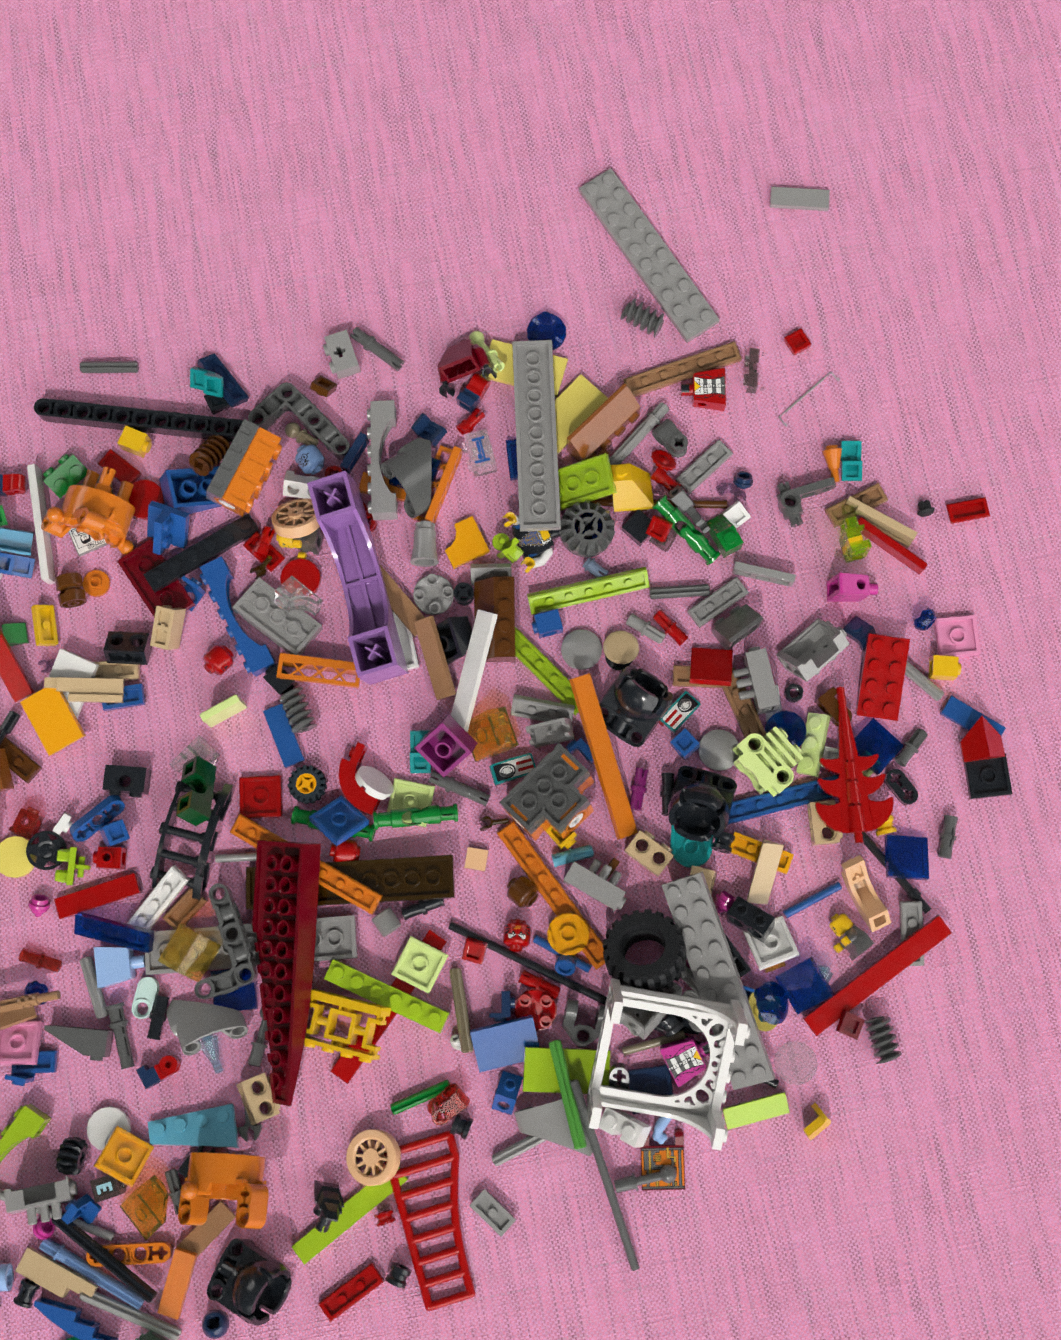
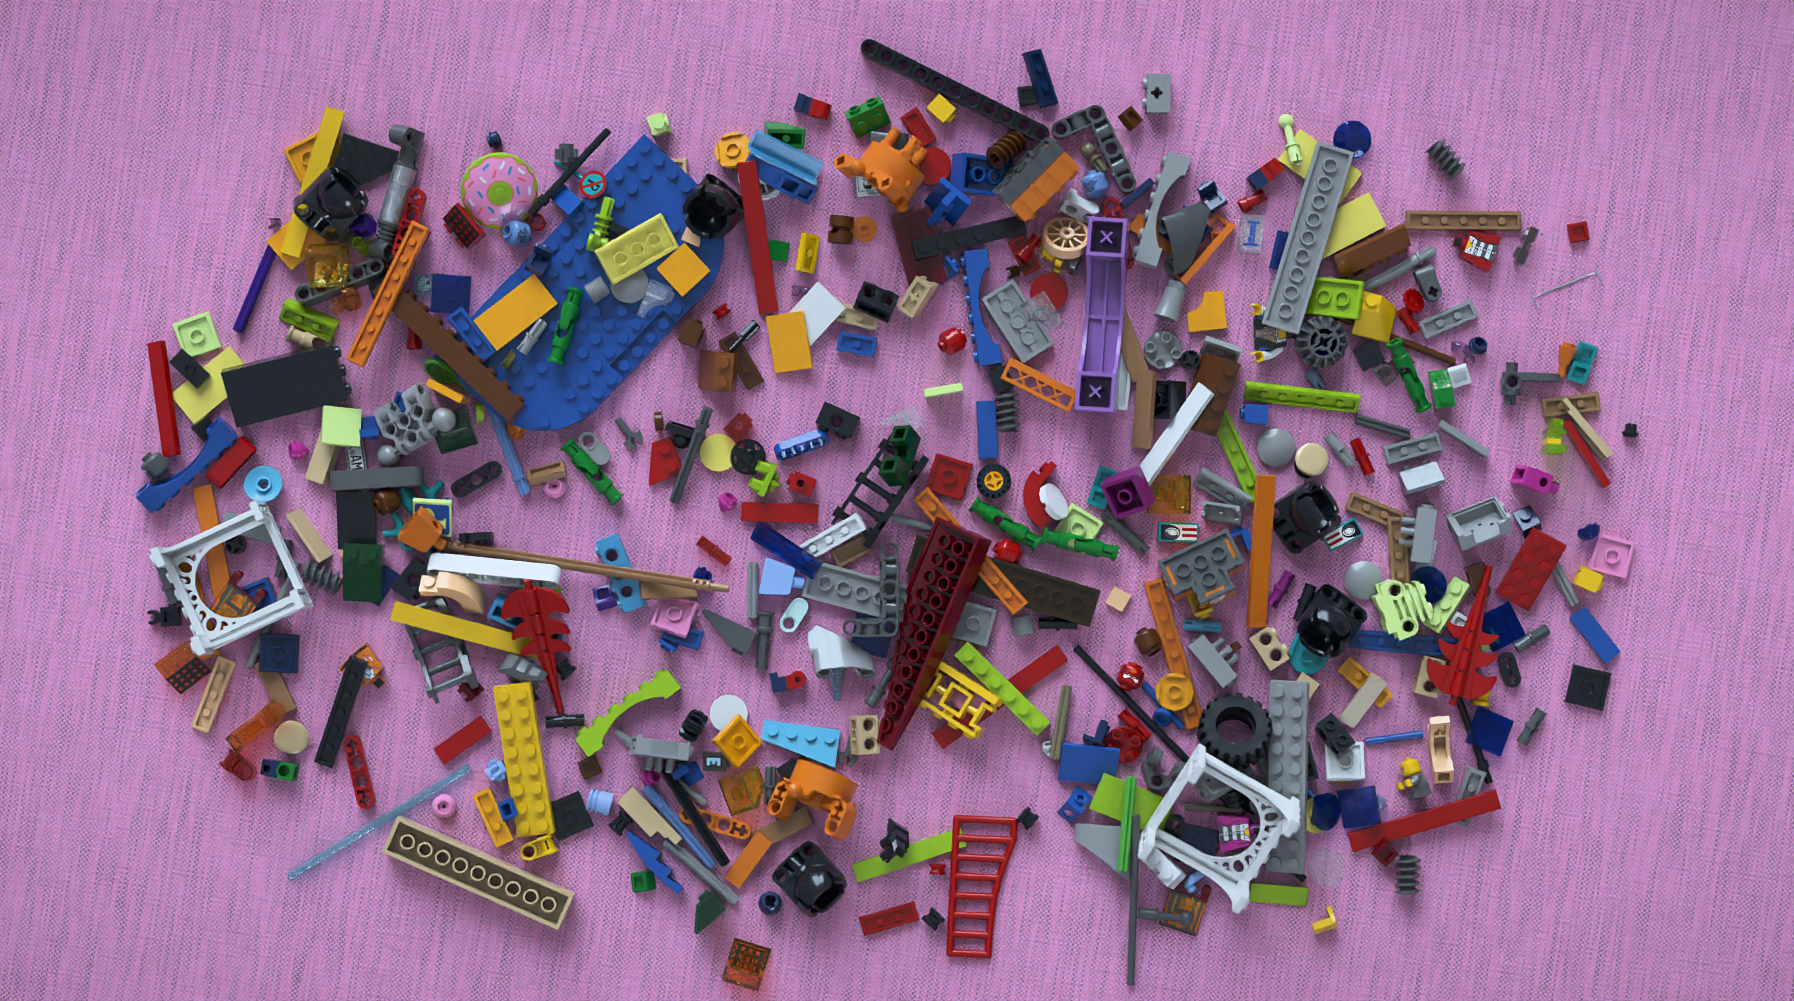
camera: 15 degrees right, 10 degrees up
(39, 512) = (833, 153): white tile -> none
(63, 824) = (770, 439): white plate -> none
(89, 689) = (831, 329): tan piece -> none
(109, 366) = (939, 26): dark grey axle -> none
(114, 832) = (813, 464): blue brick -> none
(157, 1017) = (799, 635): black pin -> none
(189, 952) = (847, 592): clear yellow slope -> none
(207, 381) = (1027, 76): teal slope -> none
(339, 820) = (1012, 524): blue tile -> none
(370, 343) = (1191, 99): dark grey pin -> none
(373, 1157) = (945, 817): light nougat wheel -> none
(418, 1098) = (998, 782): green axle -> none
(420, 964) = (1039, 672): yellowish green plate -> none
(449, 1103) = (1023, 796): clear red piece -> none
(462, 361) = (1264, 143): dark red torso -> none
(474, 951) = (1089, 676): red tile -> none
(491, 822) = (1140, 571): dark brown hand -> none
(492, 1212) = (1028, 897): light grey plate -> none
(507, 547) = (1244, 333): lime hips -> none
(516, 1149) = (1066, 853): light grey axle -> none
(649, 255) = (1473, 97): light grey plate -> none
(659, 528) = (1385, 366): red tile -> none
(685, 504) = (1417, 350): dark grey piece -> none
(685, 744) = (1335, 565): blue brick -> none
(711, 666) = (1384, 505): red tile -> none
(723, 843) = (1336, 663): black wheel -> none
(724, 901) = (1318, 712): dark pink plate -> none
(787, 693) = (1442, 551): black axle -> none
(799, 198) = (1634, 94): light grey tile -> none
(968, 510) = (1668, 446): red tile -> none
(981, 742) = (1593, 657): red slope -> none

